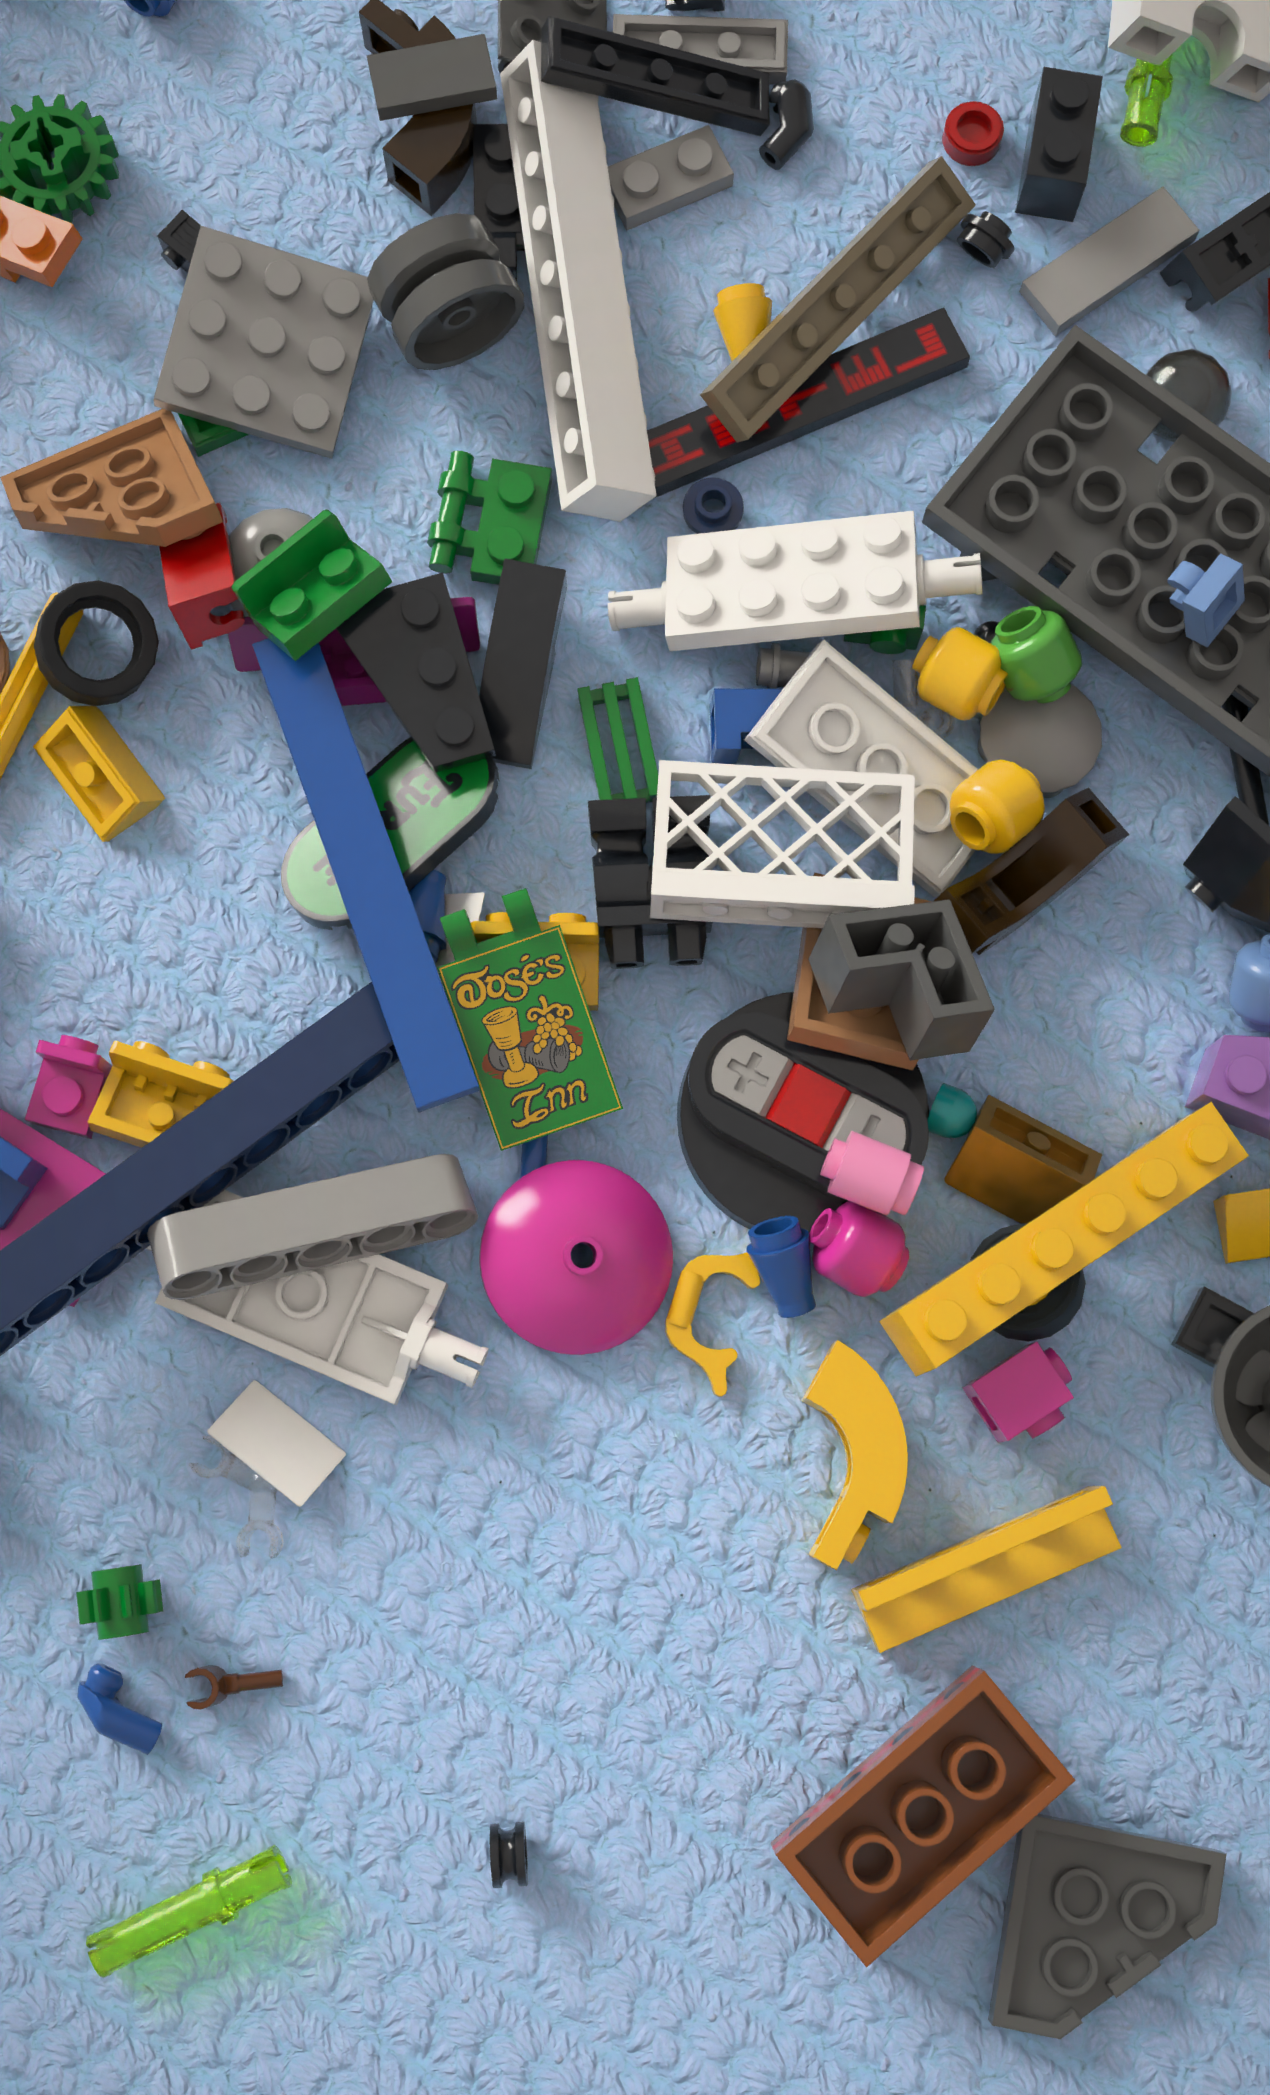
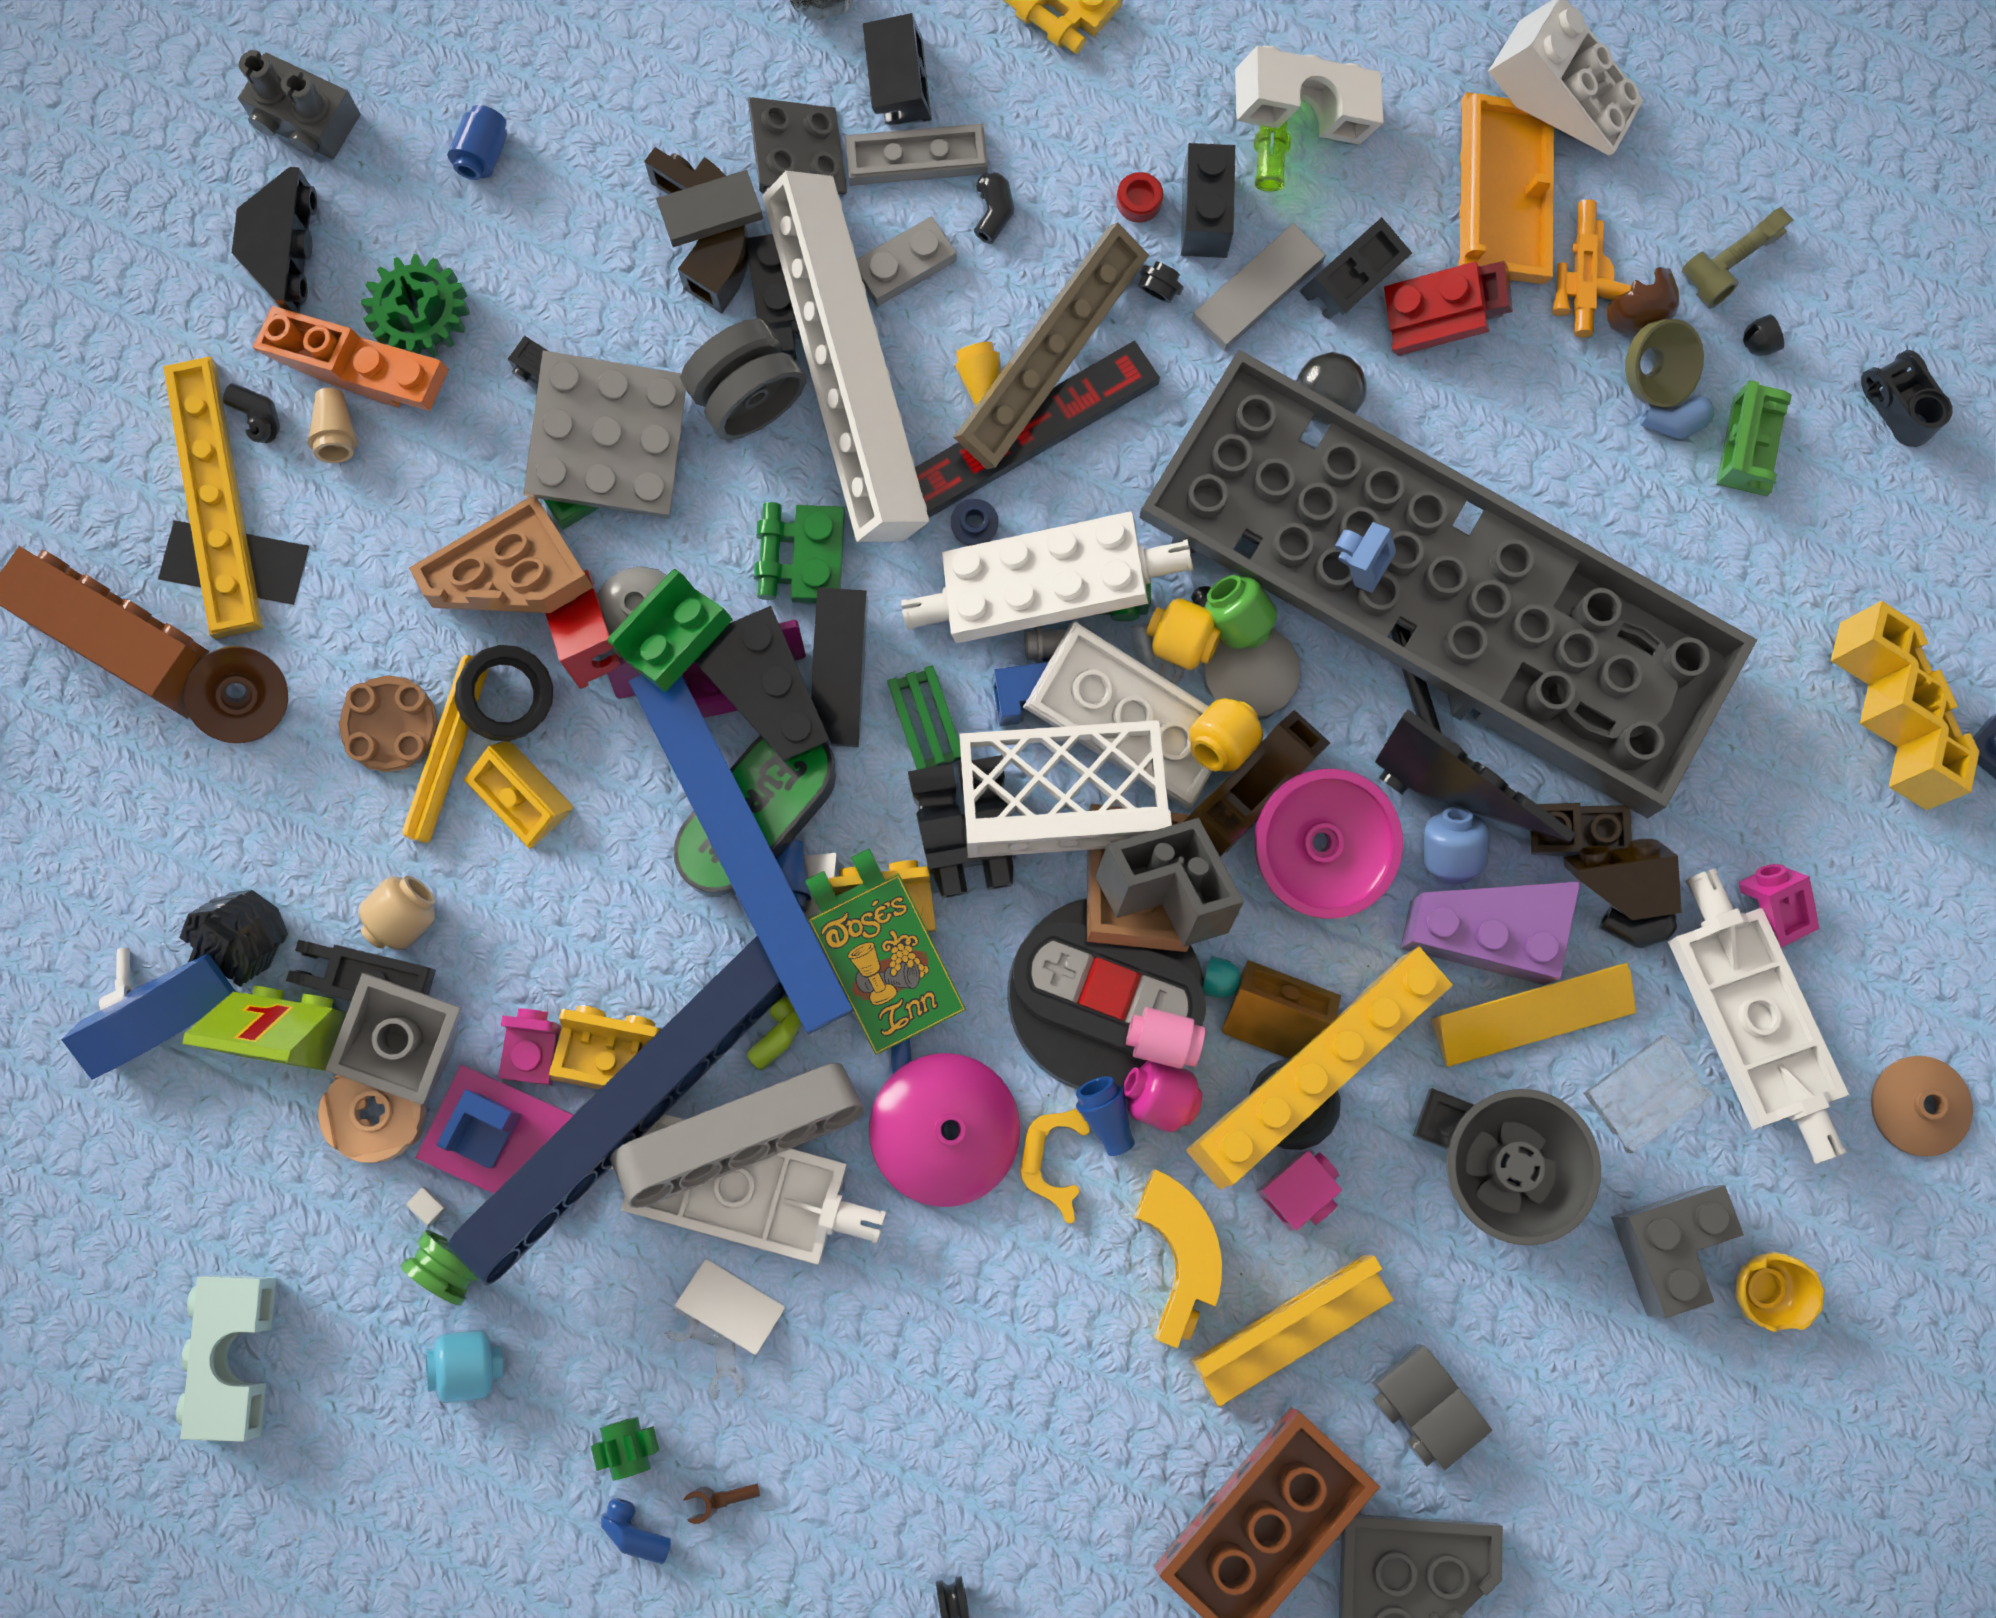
camera: 10 degrees left, 0 degrees up
(383, 1114) = (779, 1037): none -> lime arm
(654, 76) = (884, 185): black tile -> none
(1151, 949) = (1360, 848): none -> dark pink dish
(1153, 1691) = (1430, 1407): none -> dark grey brick

